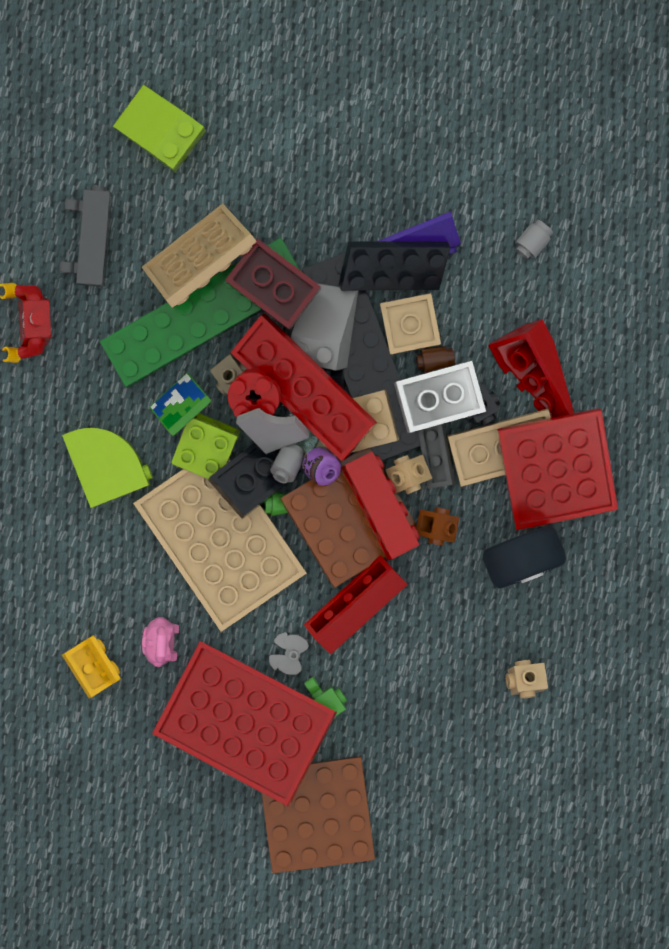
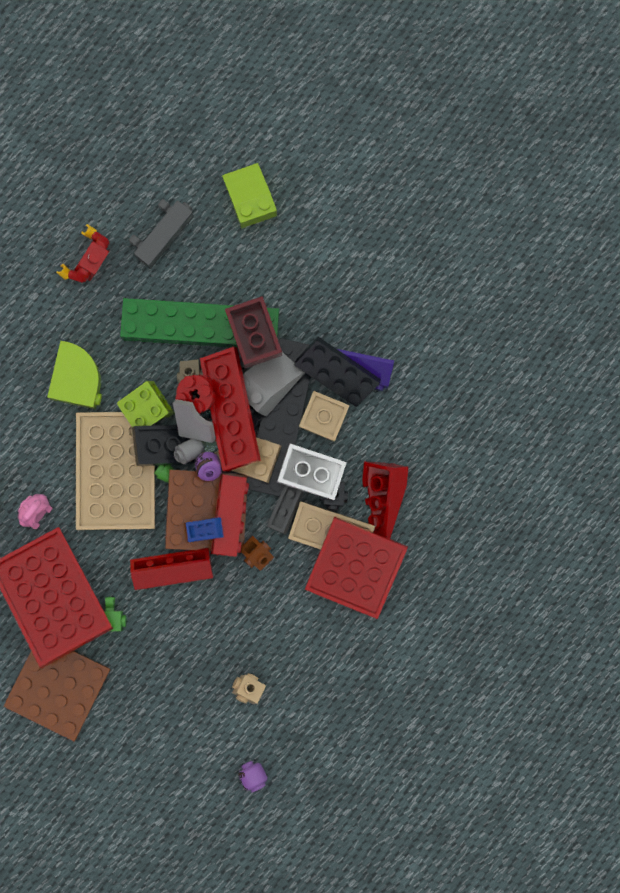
camera: 30 degrees right, 5 degrees down
(180, 404) = (147, 370): tile -> none
(198, 255) = (219, 284): tan plate -> none
(294, 646) = (106, 578): light grey piece -> none
(365, 539) = (204, 529): none -> blue plate
(409, 473) = (260, 508): tan brick -> none
(435, 359) = (325, 447): reddish brown brick -> none
(524, 557) = (297, 608): black wheel -> none
(533, 239) = (435, 414): light grey brick -> none
(593, 769) = (252, 776): none -> medium lavender head

